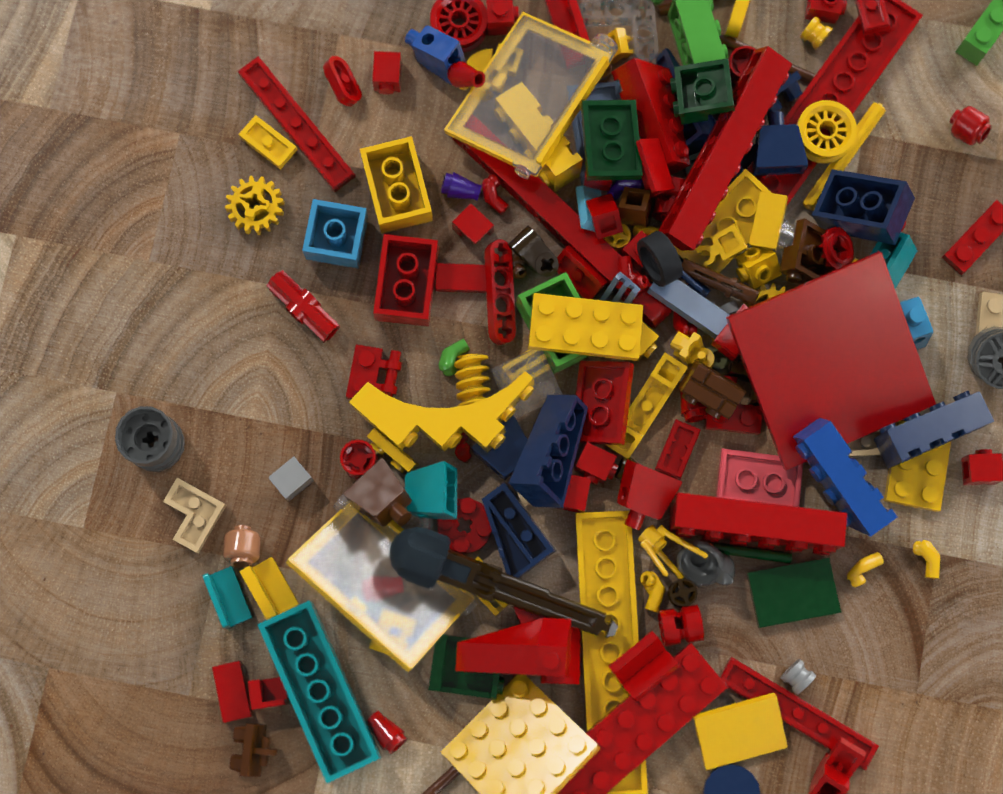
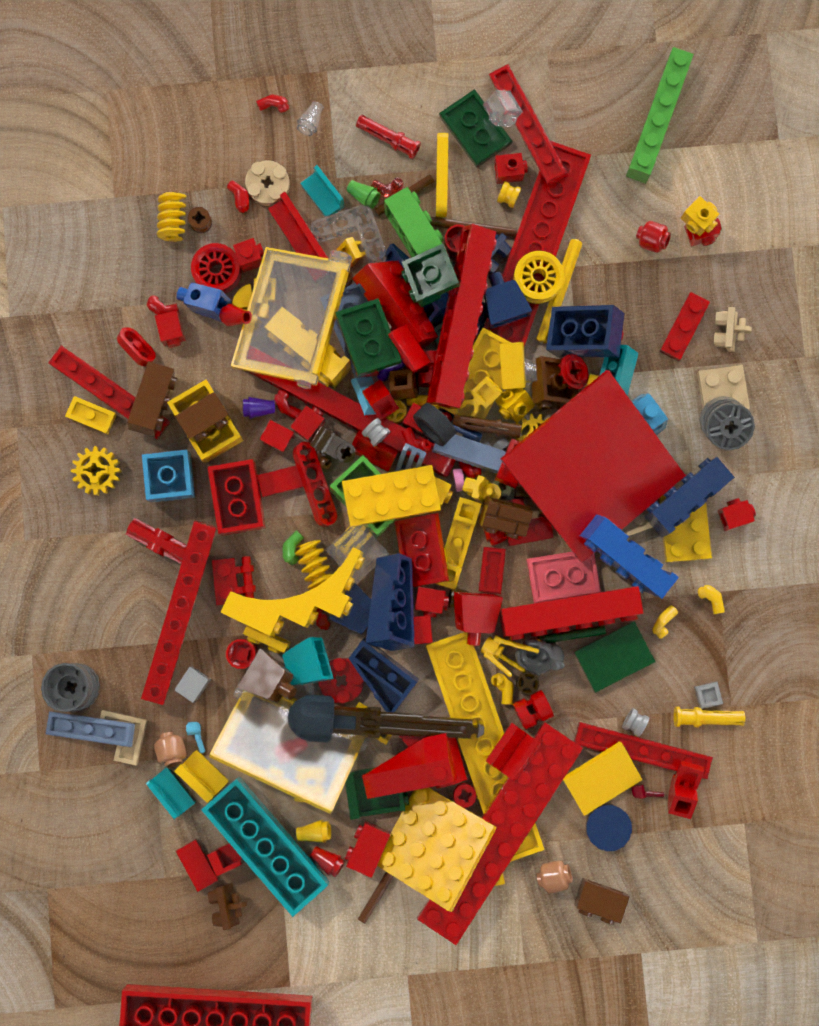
camera: 15 degrees left, 5 degrees up
(157, 495) = (90, 729): none -> sand blue tile
(277, 531) = (194, 728): none -> medium azure hand
(300, 390) = (179, 612): none -> red brick
(342, 143) = (152, 399): none -> reddish brown brick
(378, 43) = (158, 307): none -> red arm
(381, 693) = (315, 832): none -> yellow cone
(396, 176) = (203, 418): none -> reddish brown brick
(438, 731) = (368, 848): none -> red brick
(512, 220) = (308, 423): none -> red brick
(567, 701) = (462, 794): none -> red wheel
(588, 250) = (375, 432): none -> light grey wheel
(668, 334) = (458, 479): none -> bright pink tile
(779, 761) = (638, 791): none -> dark red hand
(875, 693) = (702, 717): none -> yellow pin
(893, 671) = (708, 695): none -> light grey tile

